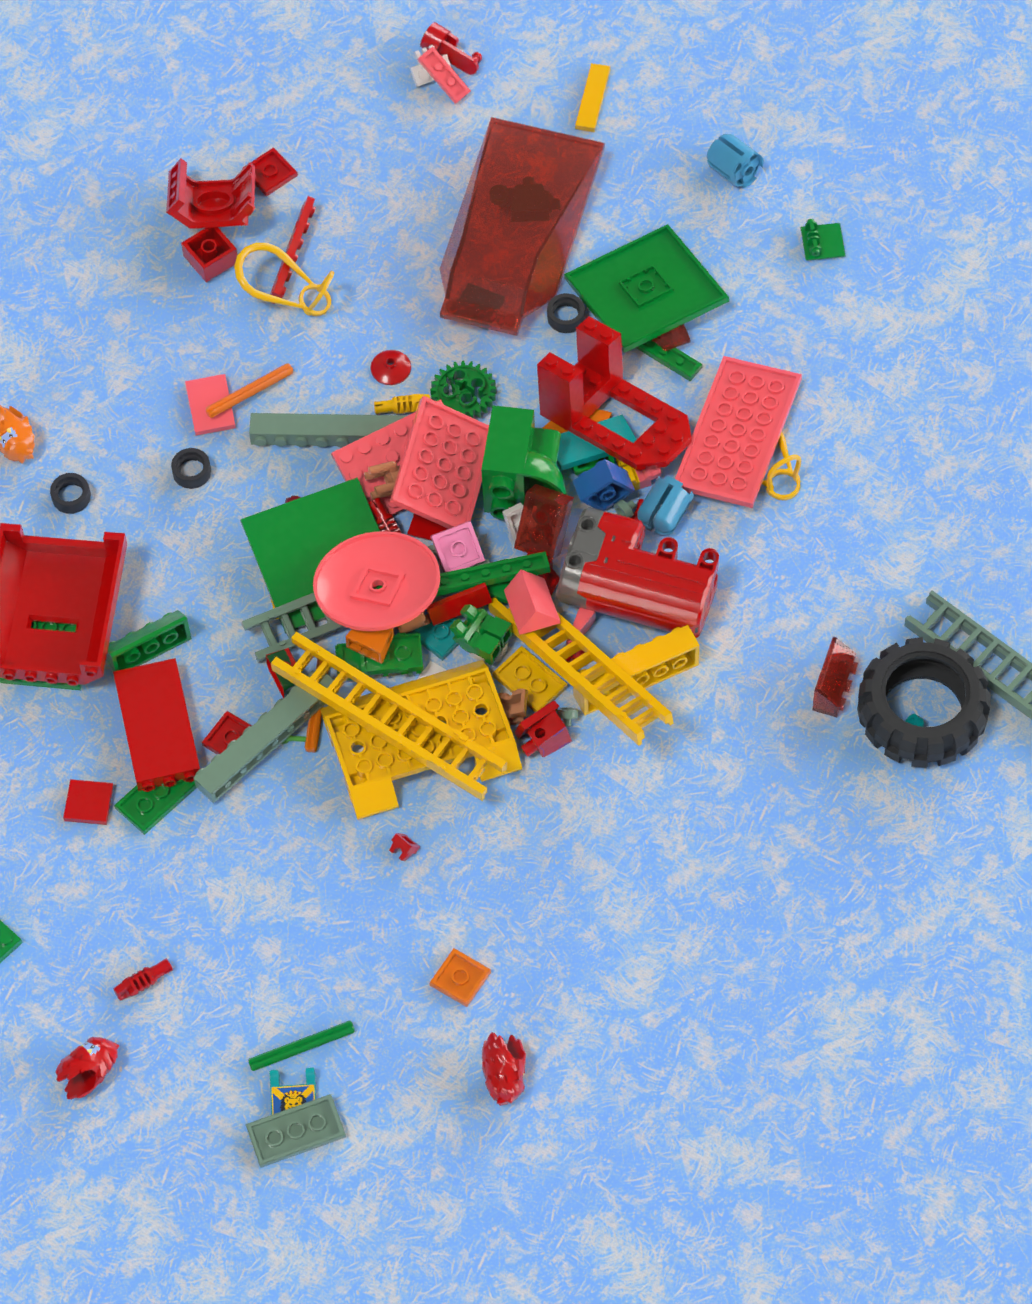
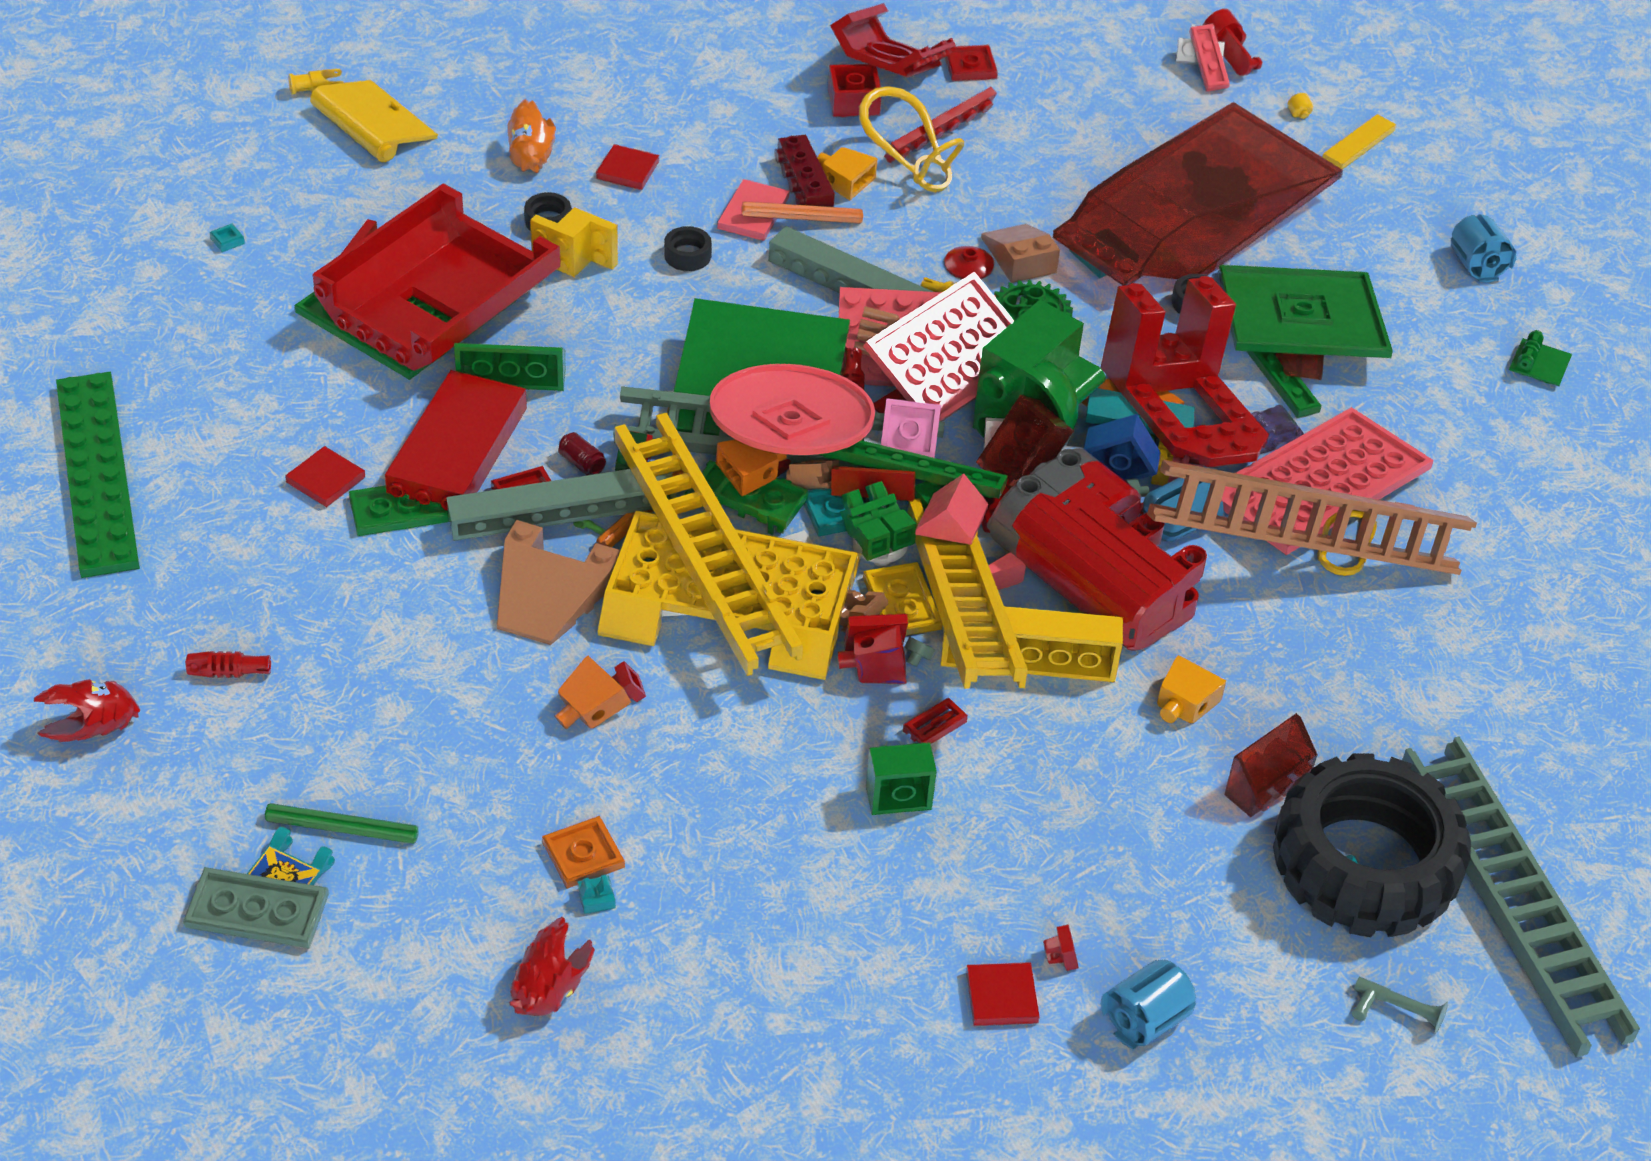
camera: 25 degrees right, 15 degrees down
(92, 415) = (627, 167): none -> red tile
(115, 508) = (580, 239): none -> yellow bracket
(226, 353) = (804, 172): none -> dark red brick
(247, 687) = (581, 454): none -> dark red head
(253, 333) = (848, 171): none -> light orange torso
(302, 807) = (546, 590): none -> nougat wedge
(390, 869) = (590, 696): none -> orange torso
(421, 337) = (1023, 251): none -> nougat slope
(489, 1001) = (596, 894): none -> teal tile
(532, 85) = (1300, 105): none -> yellow piece
(604, 776) = (939, 726): none -> red tile
(620, 817) = (901, 778): none -> green brick
(685, 399) = (1278, 425): none -> clear purple cylinder
(750, 649) = (1189, 692): none -> light orange torso
(767, 925) = (1002, 994): none -> red tile
(768, 492) = (1310, 538): none -> nougat ladder
(784, 876) = (1061, 948): none -> red tile
(857, 884) = (1149, 1003): none -> dark azure cylinder
(974, 798) = (1372, 990): none -> sand green piece

